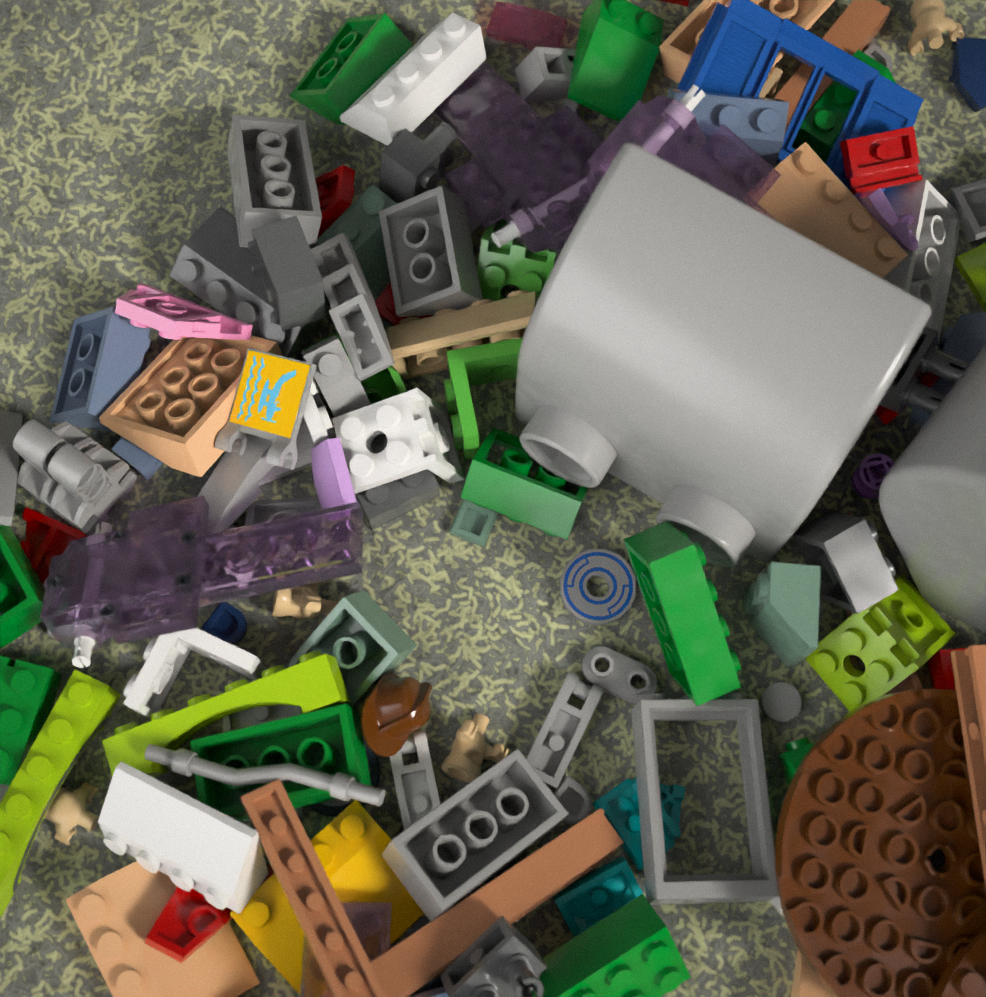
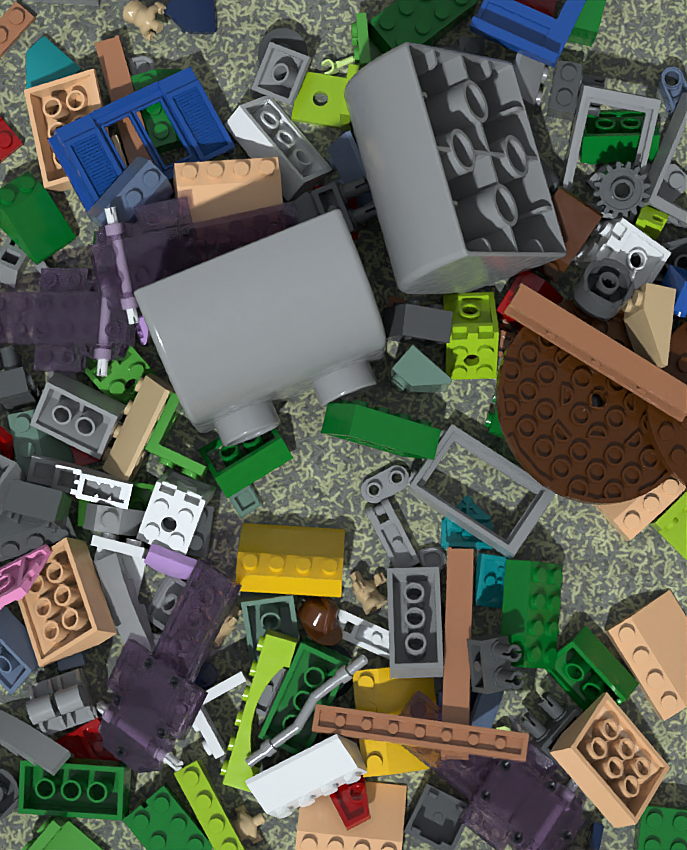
camera: 55 degrees left, 10 degrees up
(269, 406) = (104, 568): flag -> none
(439, 622) = (290, 560): none -> yellow slope
(594, 609) = (329, 475): light grey tile -> none
(780, 702) = (461, 410): light grey tile -> none
(868, 482) = (381, 270): medium lavender wheel -> none
(881, 160) = (210, 123): red plate -> none
(895, 225) = (252, 149): lavender slope -> none

